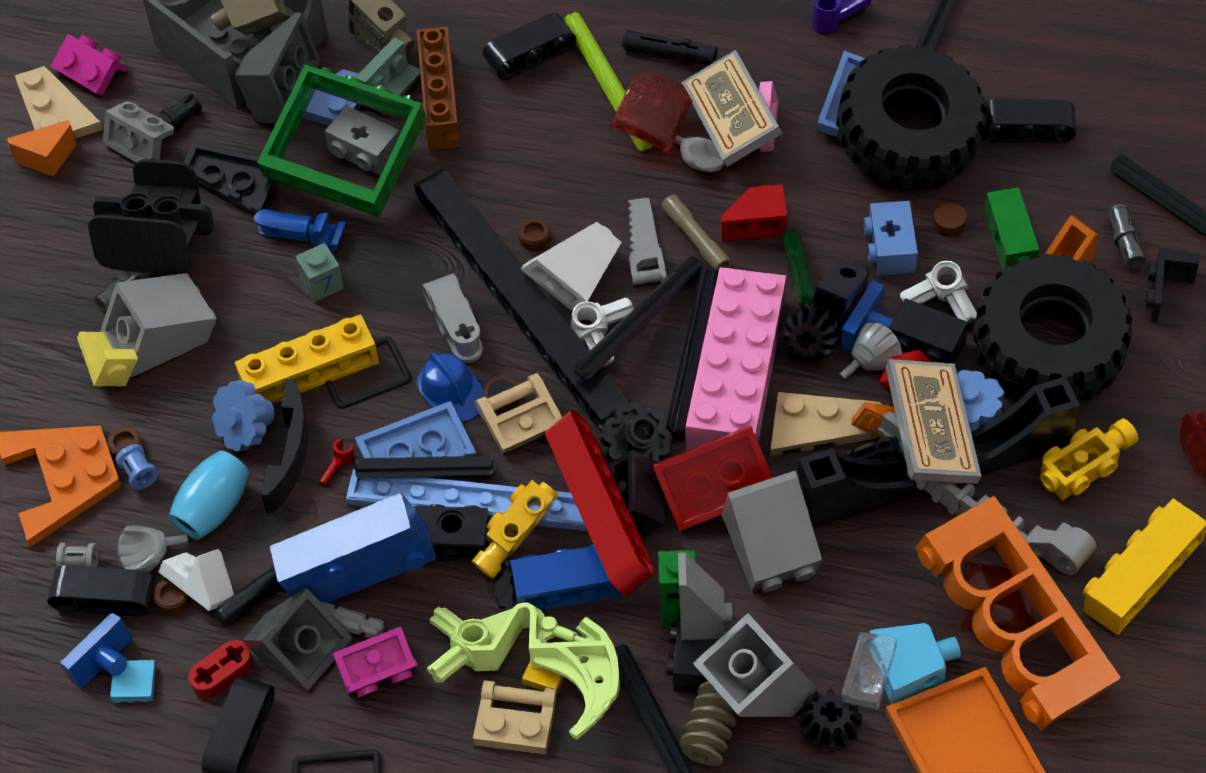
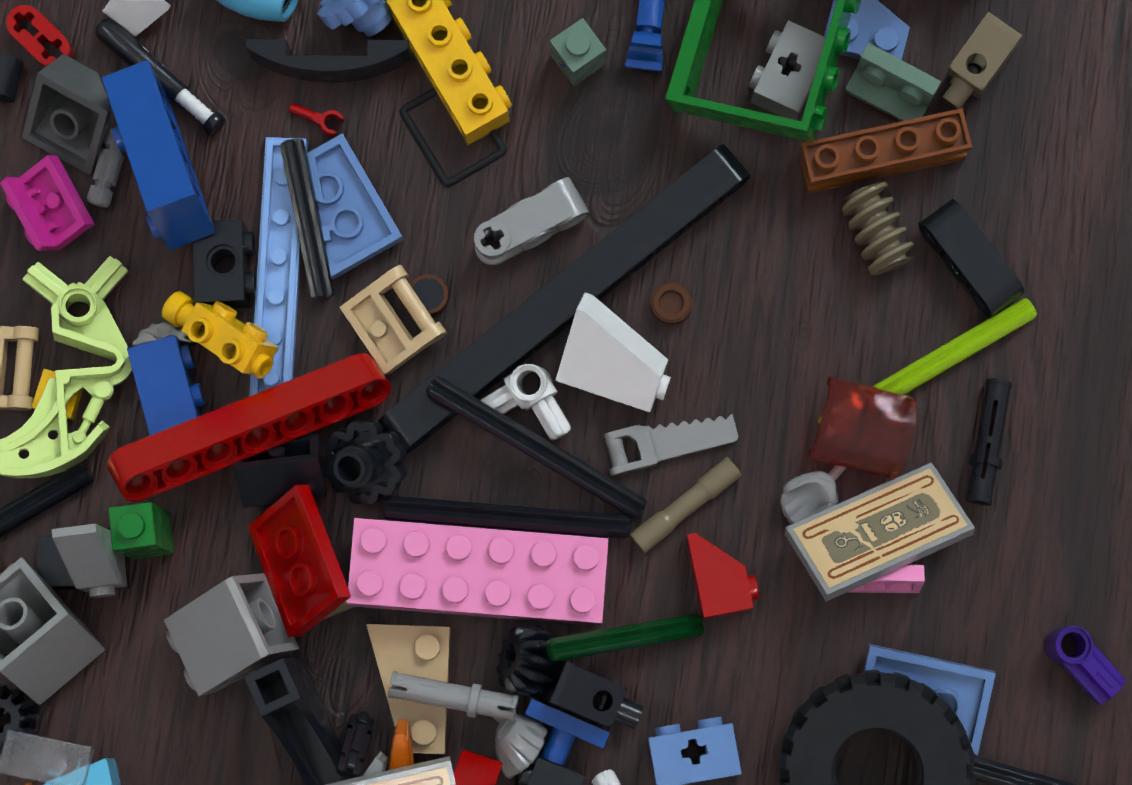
camera: 85 degrees right, 25 degrees up
(449, 379) = (435, 234): blue piece -> none
(496, 95) = (877, 228): none -> dark tan piece
(839, 370) = (453, 696): none -> light grey pin

